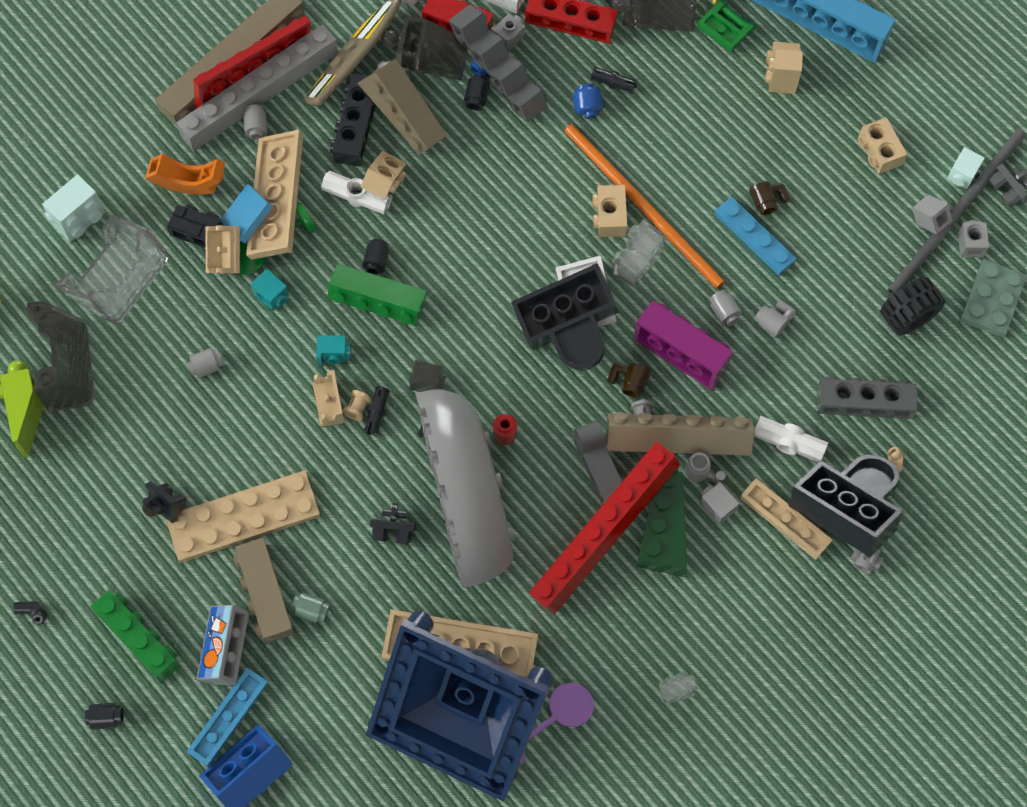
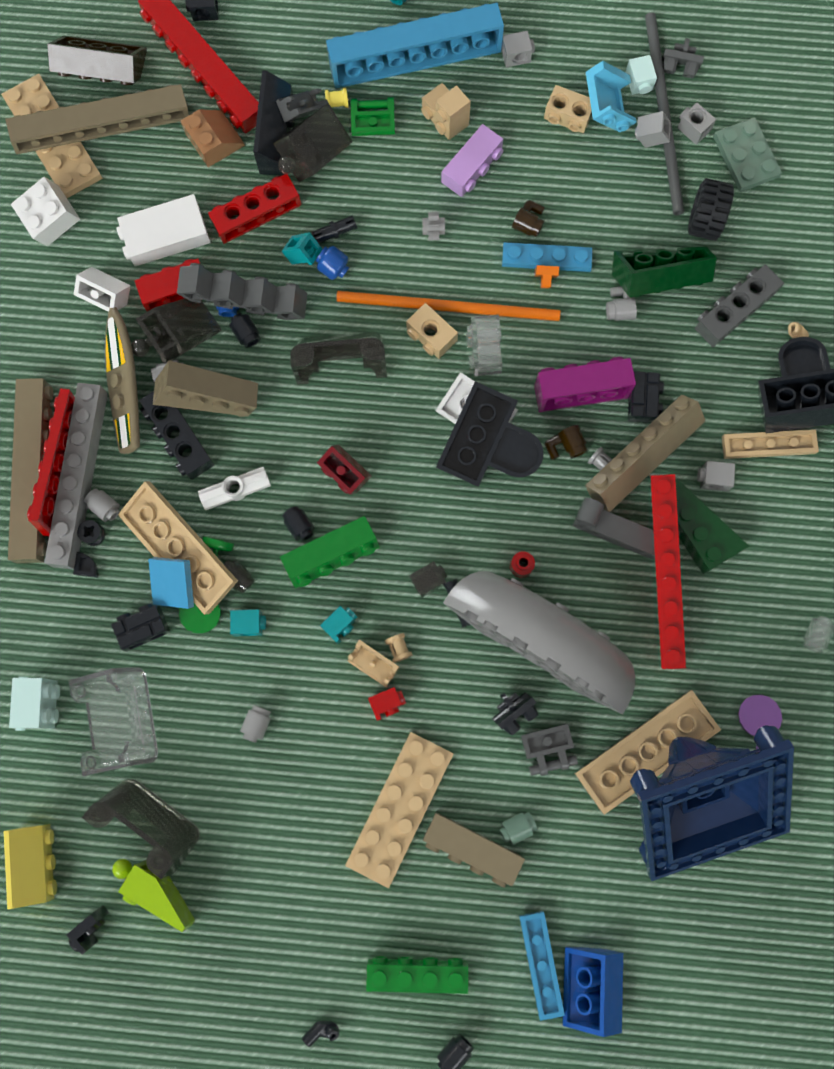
camera: 40 degrees left, 10 degrees up
(162, 502) = (333, 862): black hips -> none
(184, 177) = (94, 597): orange arch -> none
(201, 152) = (85, 566): none -> black tile
(222, 249) = (182, 627): tan hinge -> none
(223, 645) = (487, 919): brick -> none
(233, 137) = (95, 536): none -> black wheel
(298, 257) = (241, 574): none -> clear smoke brick
(308, 433) = (386, 702): none -> red brick
(376, 411) = (416, 638): black pin -> none
(384, 175) = (245, 457): tan brick -> none
(393, 569) = (546, 742): none -> dark grey plate
(446, 247) = (343, 469): none -> dark red brick
(500, 147) = (311, 350): none -> clear smoke windscreen
(511, 29) = (221, 252): light grey brick -> none
(574, 72) = (302, 249): none -> teal brick
(689, 139) = (433, 225): none -> light grey gear
(699, 469) = (680, 461): light grey piece -> none
(723, 396) = (644, 399): none -> black brick
(725, 308) = (581, 329): light grey brick -> none
(739, 246) = (546, 274): none -> orange tile
(768, 119) = (472, 161): none -> lavender brick
(790, 439) = (719, 383): white piece -> none
(832, 319) = (663, 270): none -> dark green wedge
(886, 69) = (517, 49): none -> light grey brick
(919, 160) = (606, 98): none -> medium azure panel

